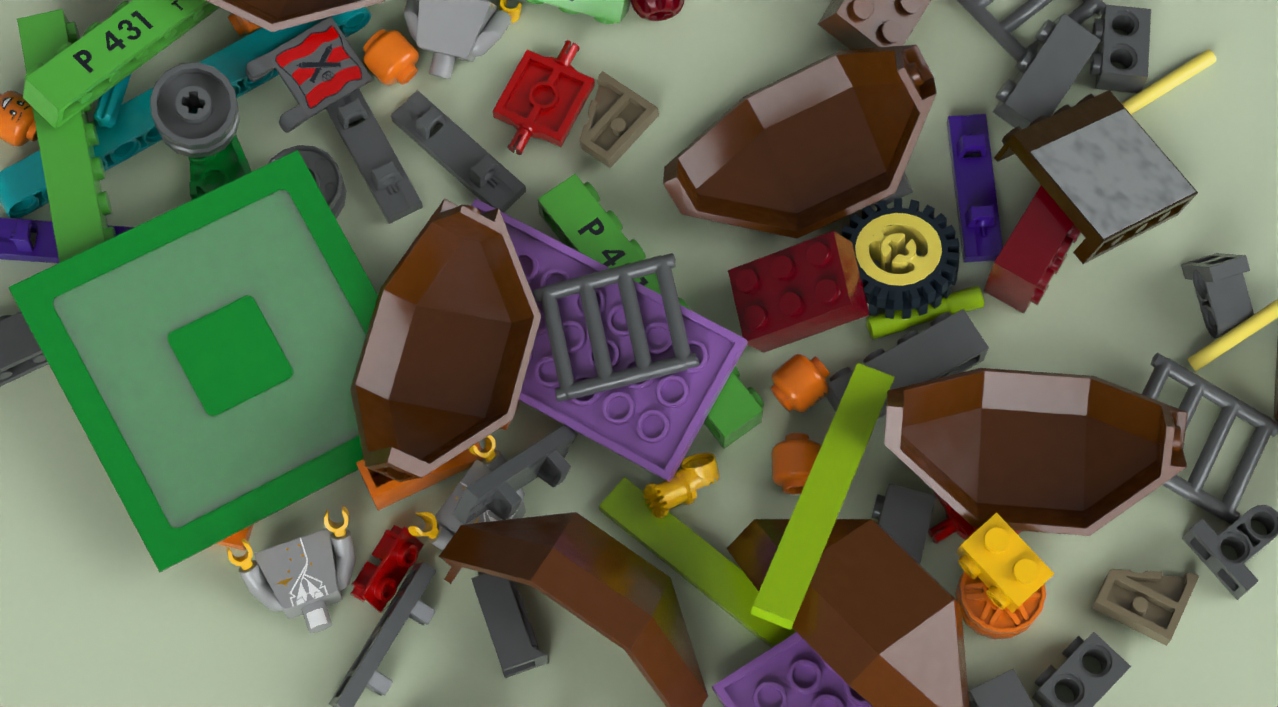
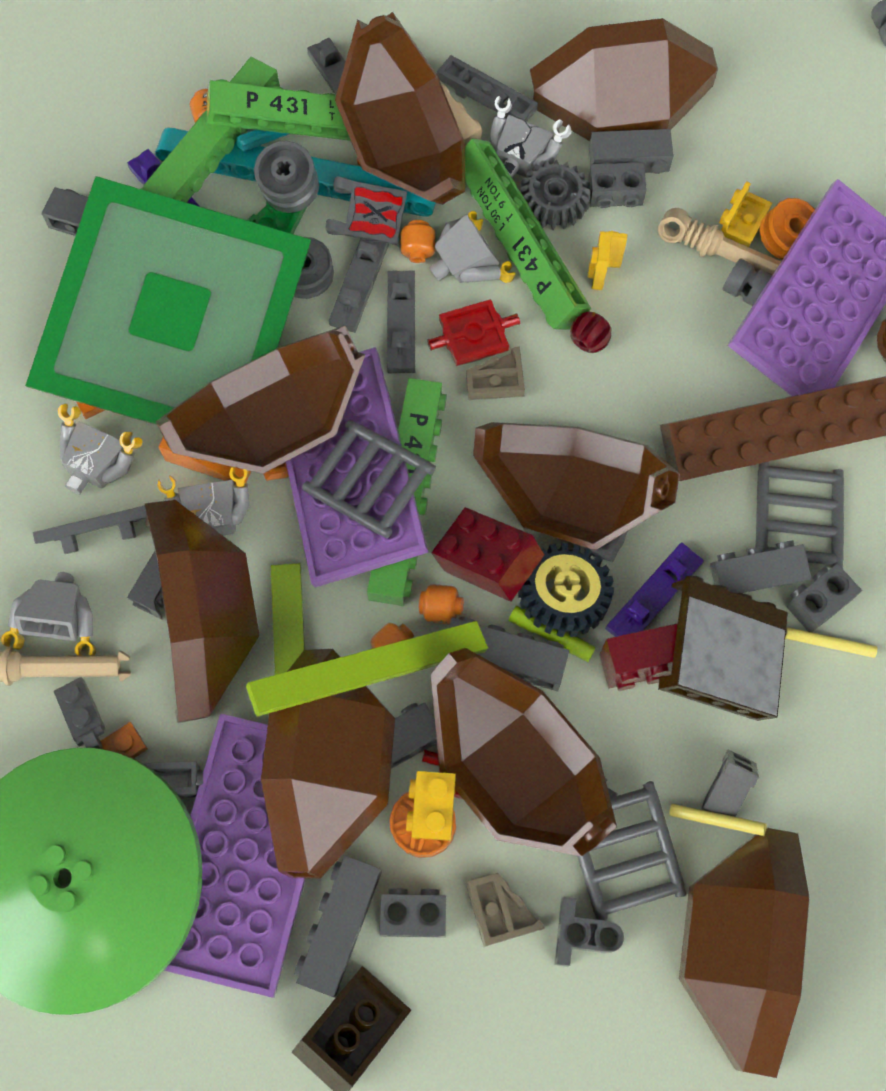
camera: 45 degrees right, 0 degrees up
(397, 553) = (129, 495): red hinge -> none
(499, 487) = (215, 499): dark grey hinge -> none
(695, 473) = (334, 596): yellow connector -> none

